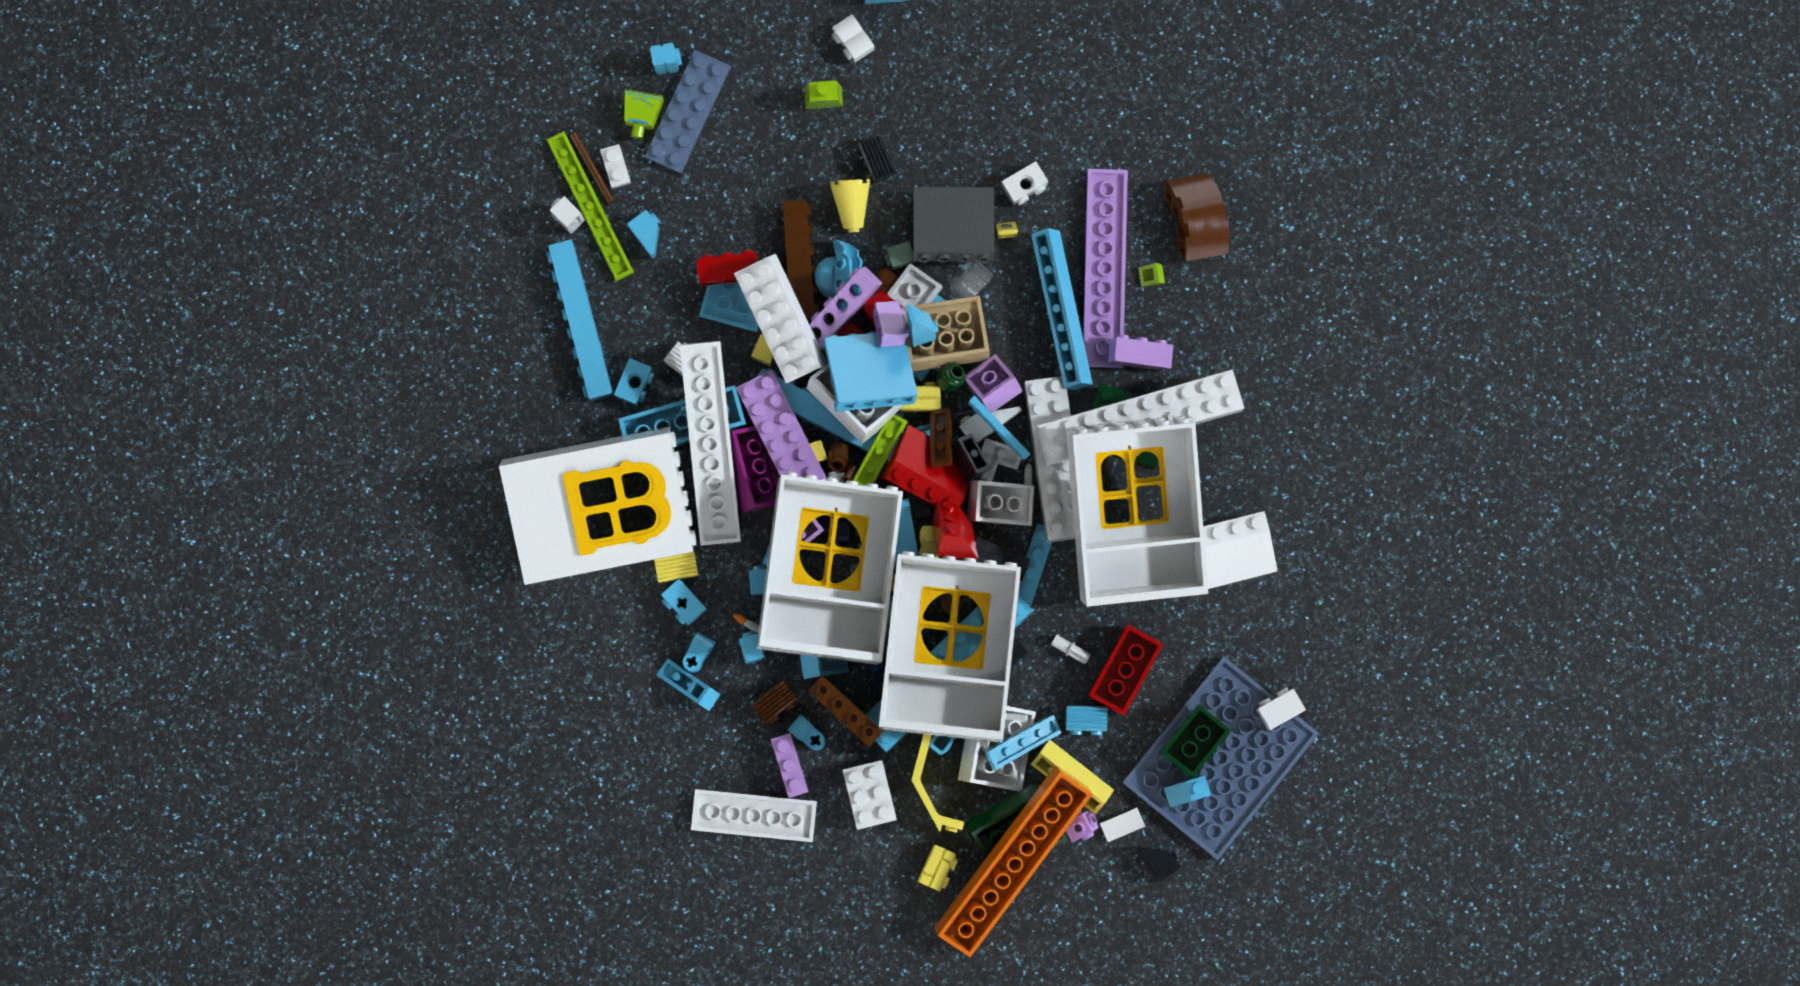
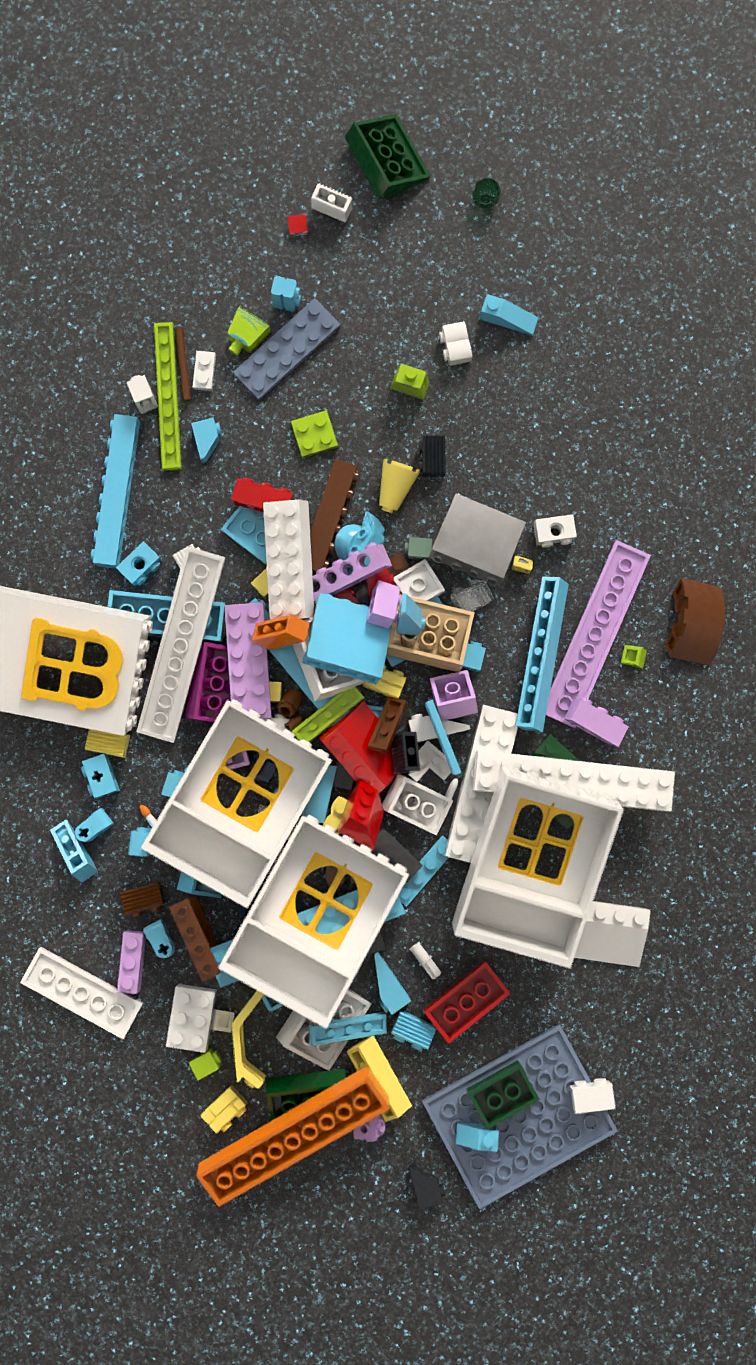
camera: 20 degrees right, 0 degrees up
(750, 184) = (314, 434): none -> lime plate
(802, 390) = (280, 632): none -> orange brick
(900, 786) = (222, 1020): none -> white plate
(901, 832) = (205, 1063): none -> lime brick
(950, 377) = (418, 674): dark green head -> none
(997, 339) = (474, 656): none -> medium azure brick
(1048, 690) = (391, 991): none -> medium azure slope
(1122, 824) = (406, 1139): white tile -> none

